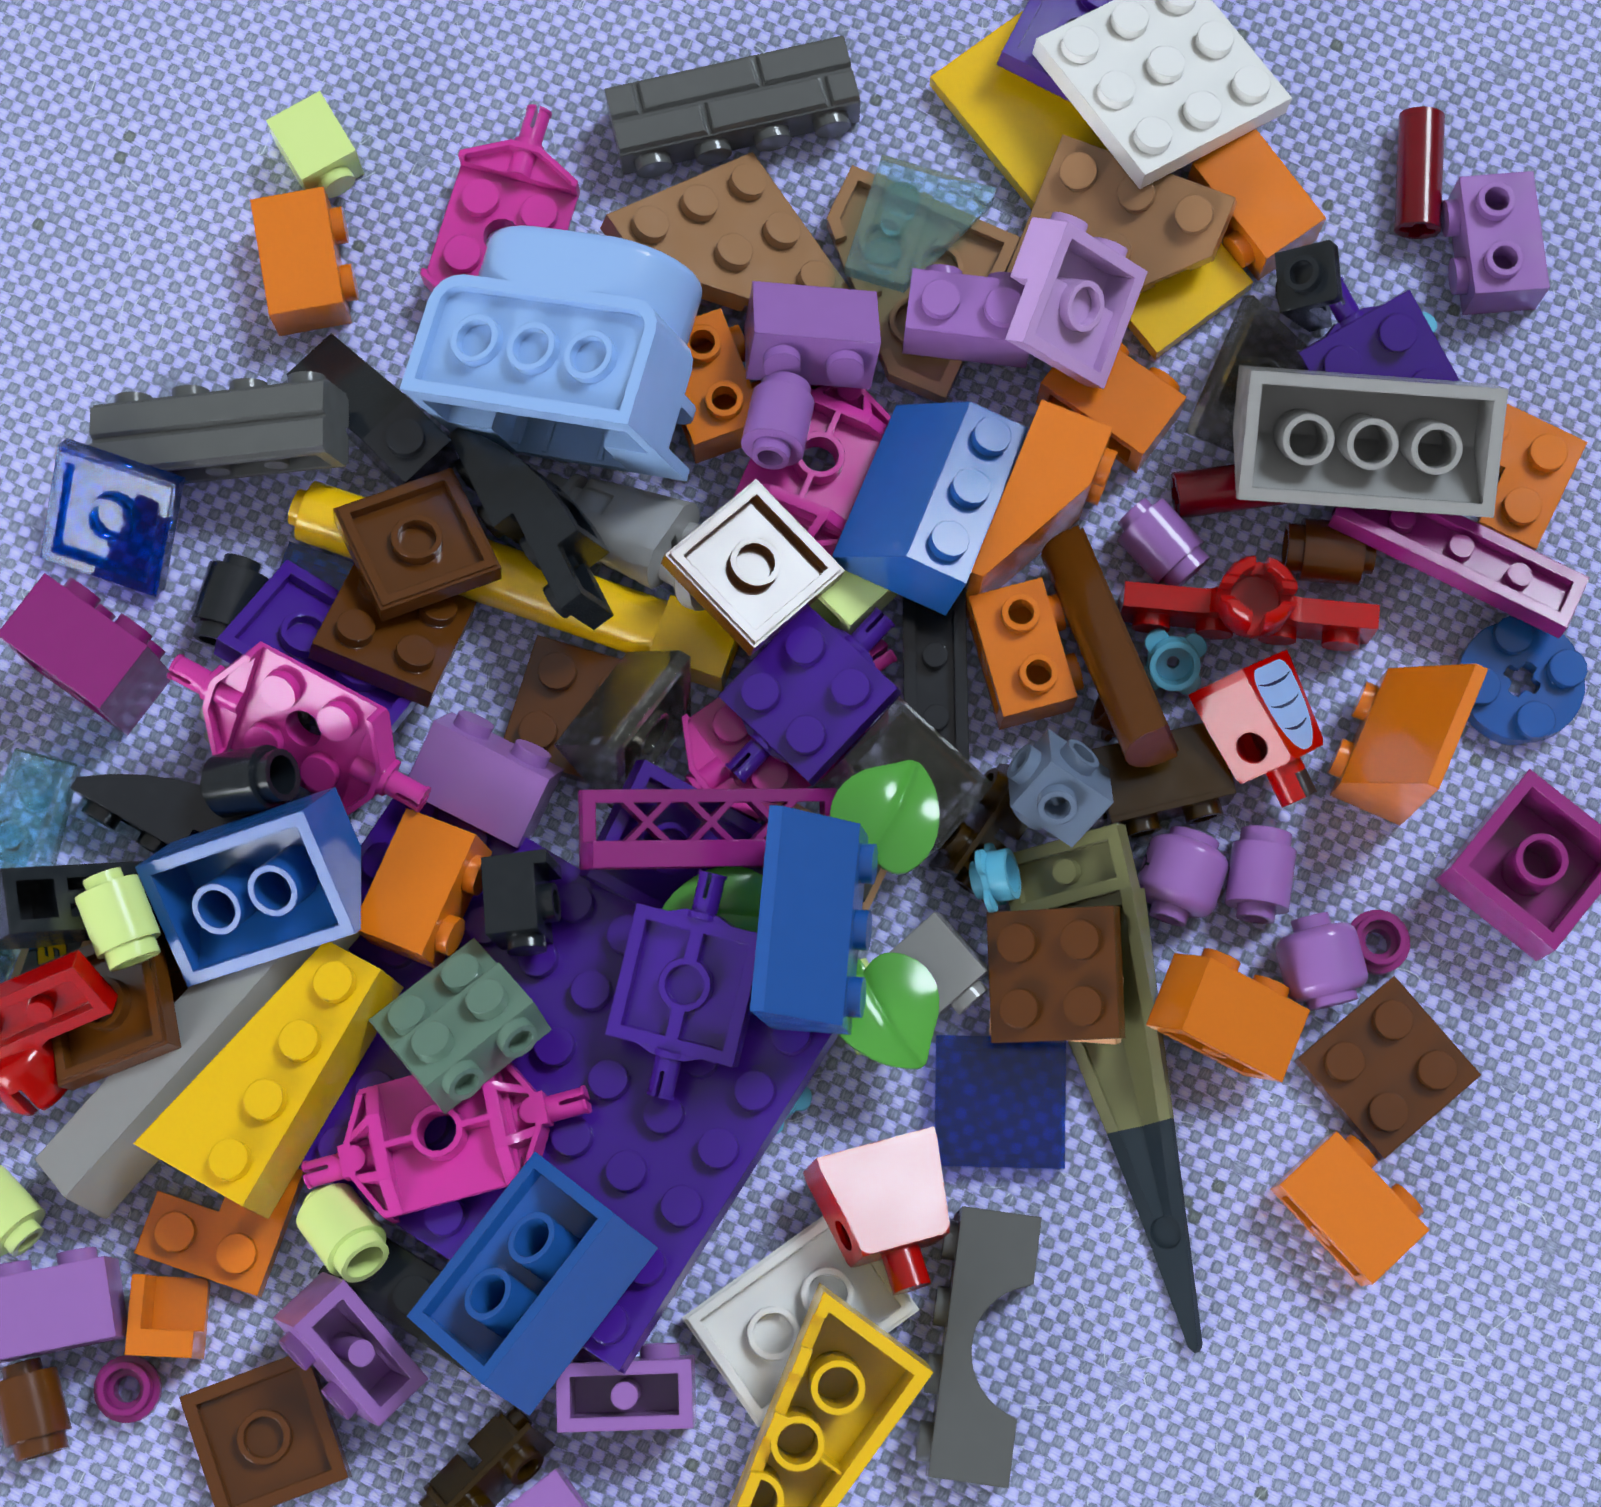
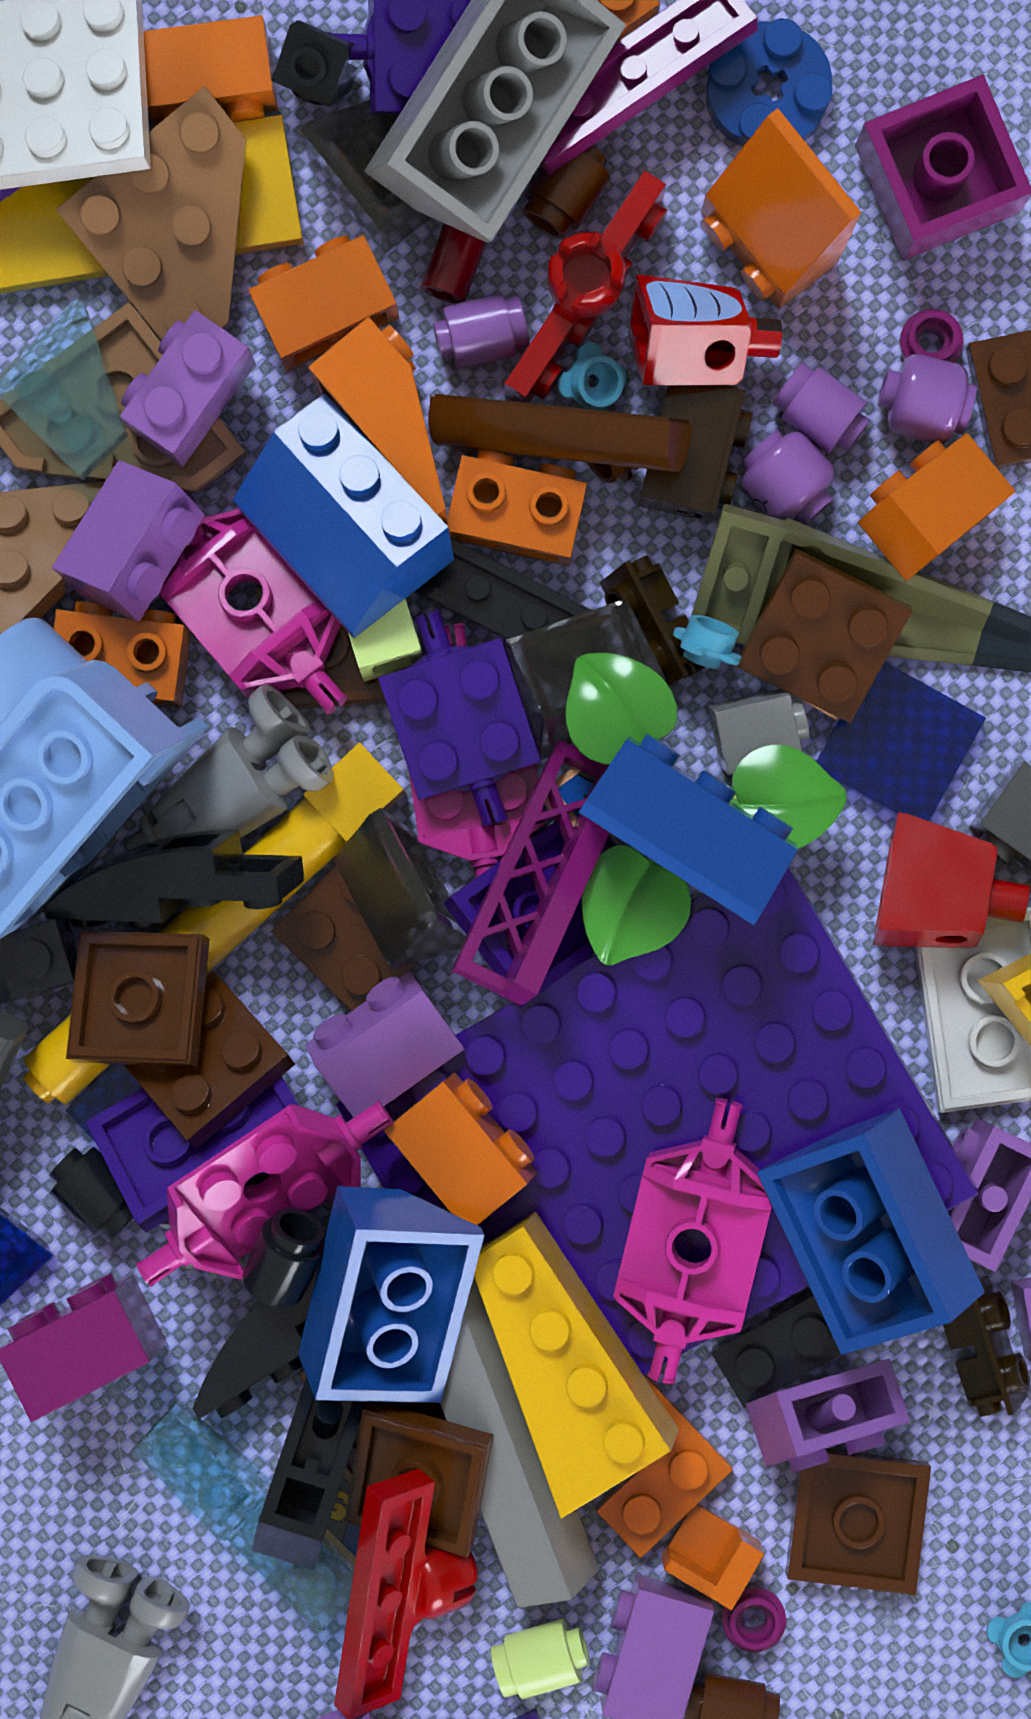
camera: 60 degrees left, 10 degrees up
(118, 919) = (355, 1436): yellowish green brick -> none
(343, 1232) = (727, 1370): yellowish green brick -> none
(460, 1025) = (607, 1181): sand green plate -> none
(521, 900) = (521, 1071): black brick -> none
(685, 986) = (679, 964): dark purple plate -> none
(752, 567) = (326, 709): tile -> none
(778, 420) = (196, 613): medium lavender brick -> none
(1059, 787) = (665, 543): sand blue brick -> none
(1073, 298) = (227, 283): lavender plate -> none

